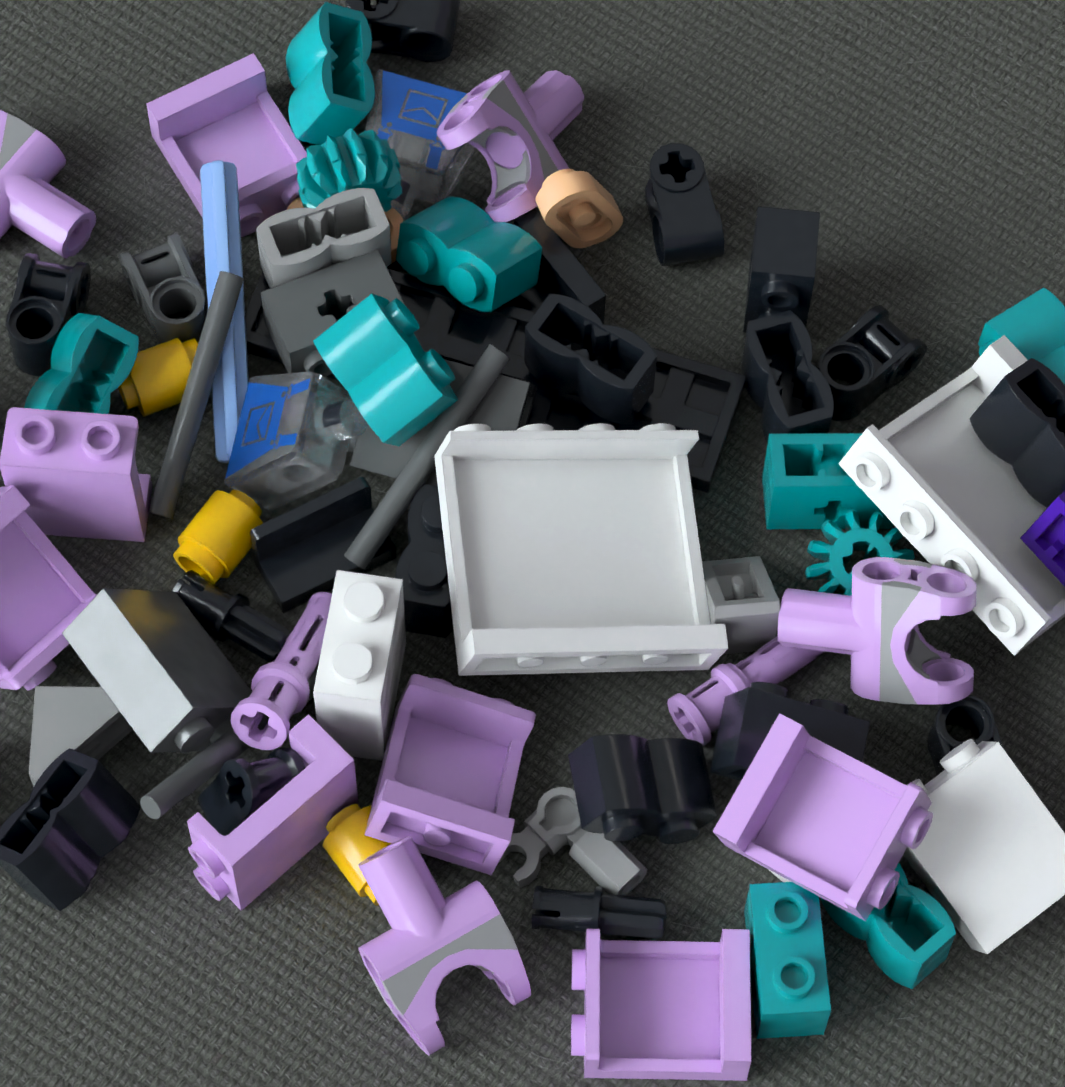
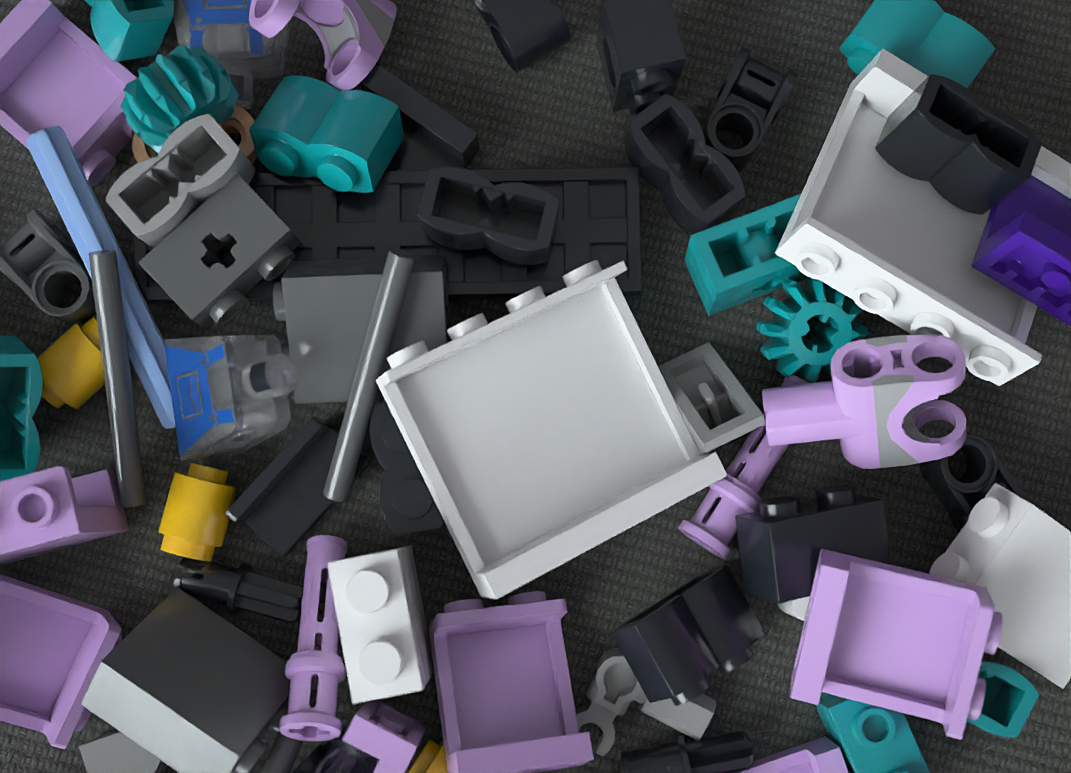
camera: 20 degrees left, 20 degrees up
(386, 368) = (294, 313): teal brick -> none
(578, 208) = (415, 46): light nougat plate -> none

